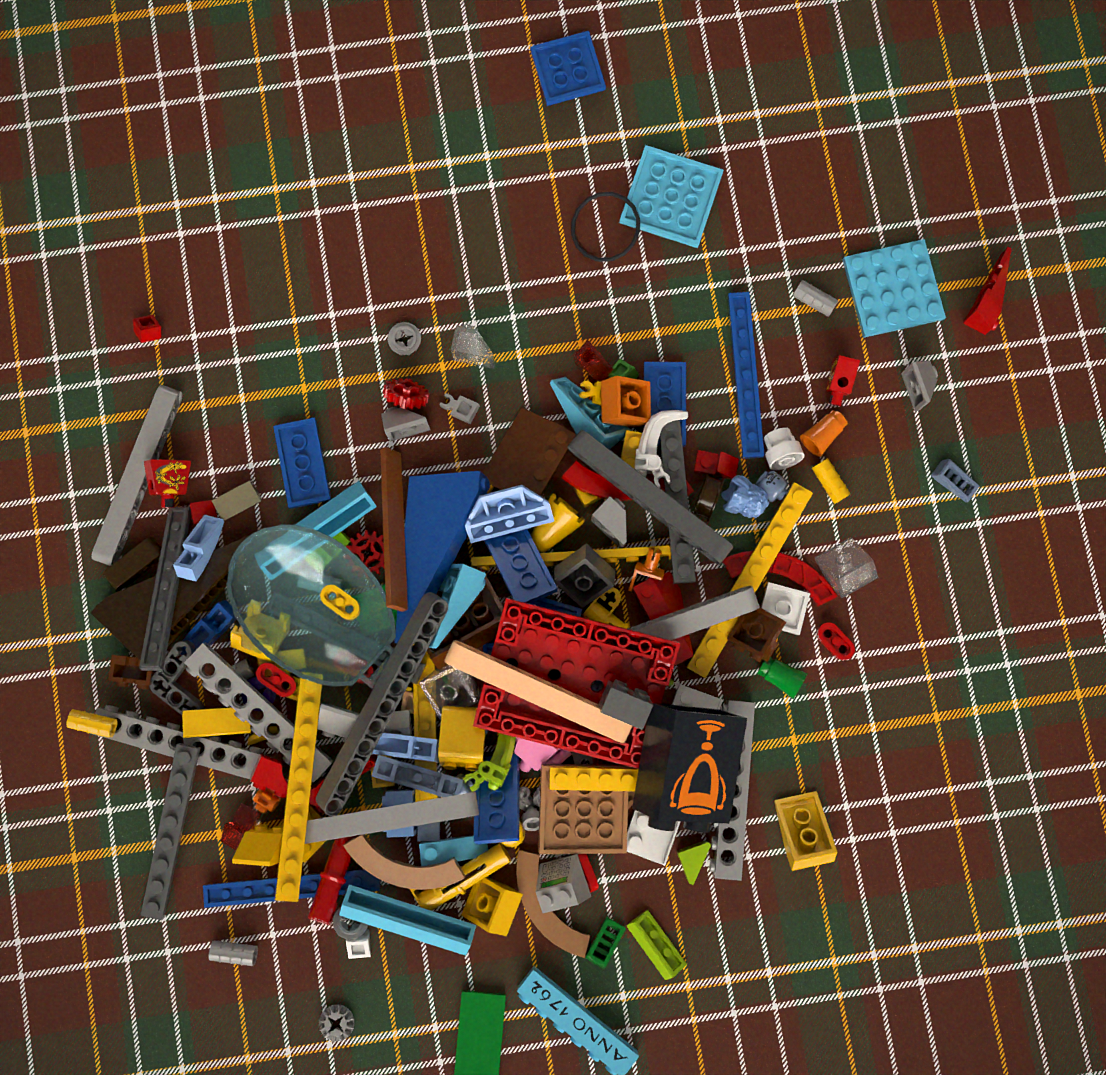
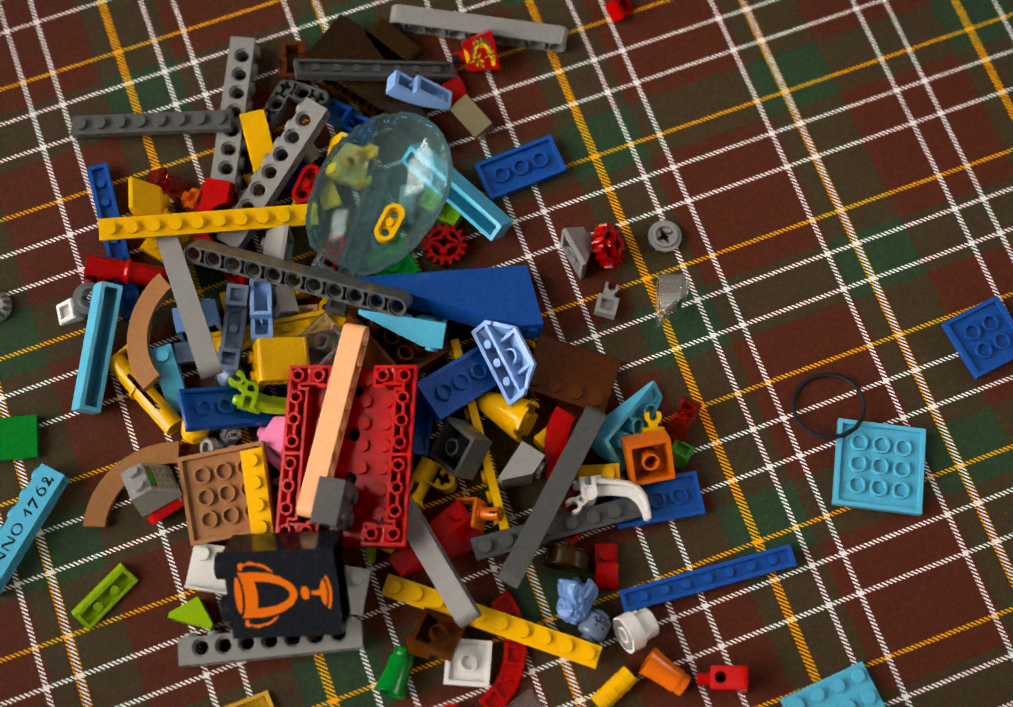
camera: 75 degrees right, 10 degrees down
(91, 723) = (239, 35): yellow axle -> none
(233, 953) = (48, 202): light grey axle -> none
(393, 530) = (469, 257): dark orange tile -> none
(492, 906) = (121, 427): yellow slope -> none
(596, 960) = (95, 533): green slope -> none
(815, 298) = (808, 637): light grey axle -> none

